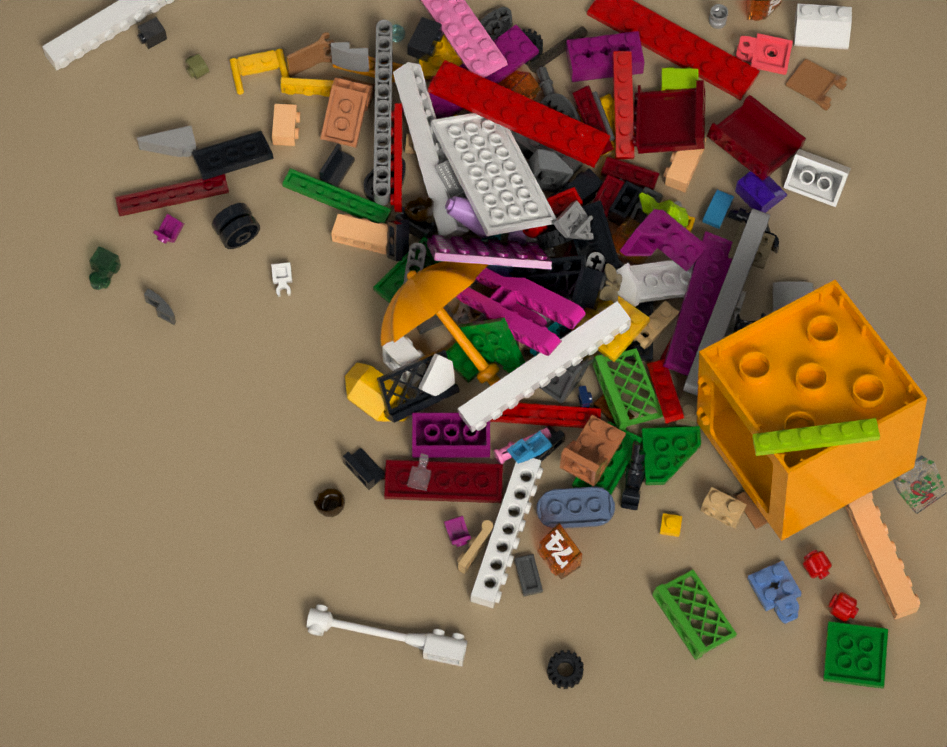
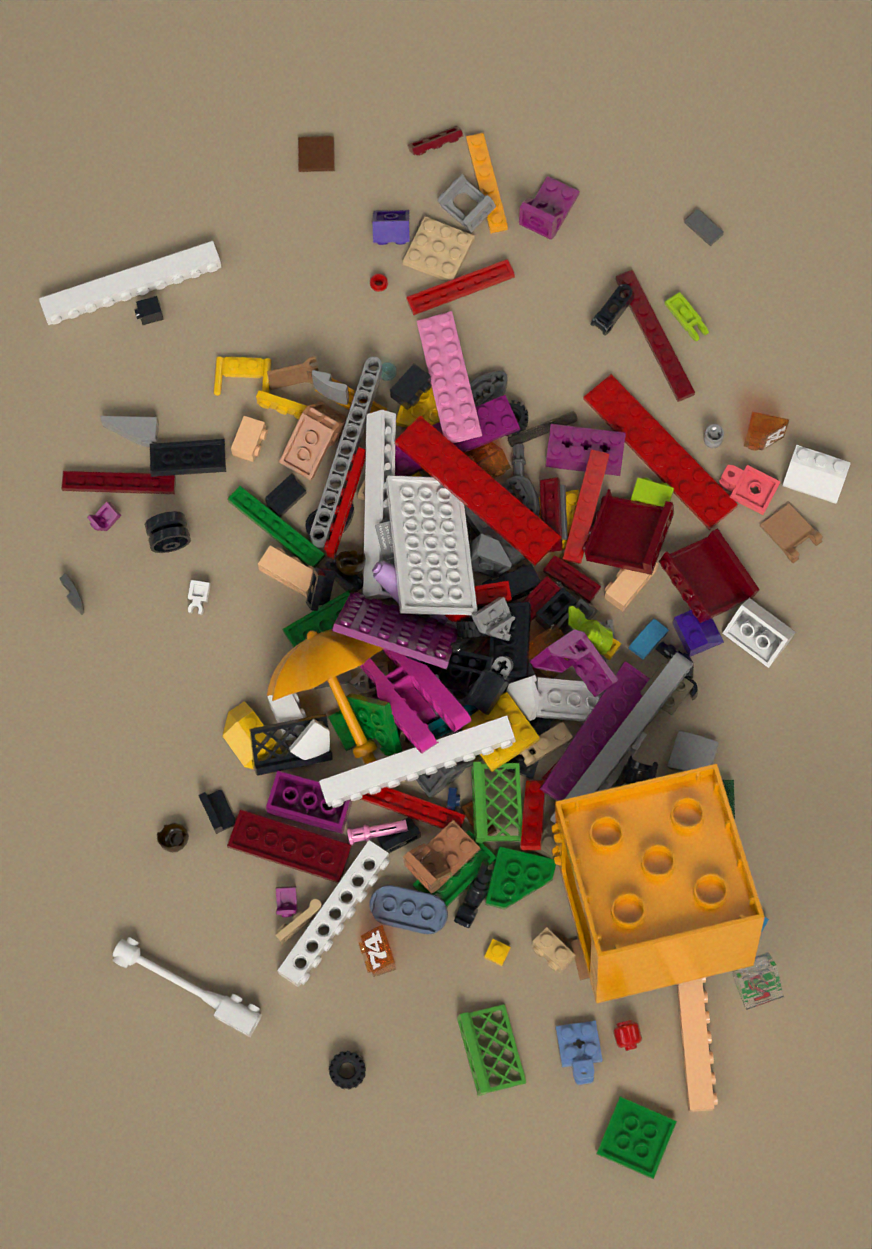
camera: 20 degrees right, 5 degrees up
(105, 265) = (34, 537): clear green brick -> none
(196, 66) = (181, 356): olive plate -> none
(411, 258) = (328, 608): light grey beam -> none
(419, 475) = (267, 836): clear plate -> none
(526, 450) = (377, 839): dark azure slope -> none
(528, 575) = (342, 964): dark grey tile -> none
(614, 283) = (513, 693): dark tan piece -> none
(816, 437) = (638, 926): lime plate -> none
(843, 606) = (639, 1085): red head -> none

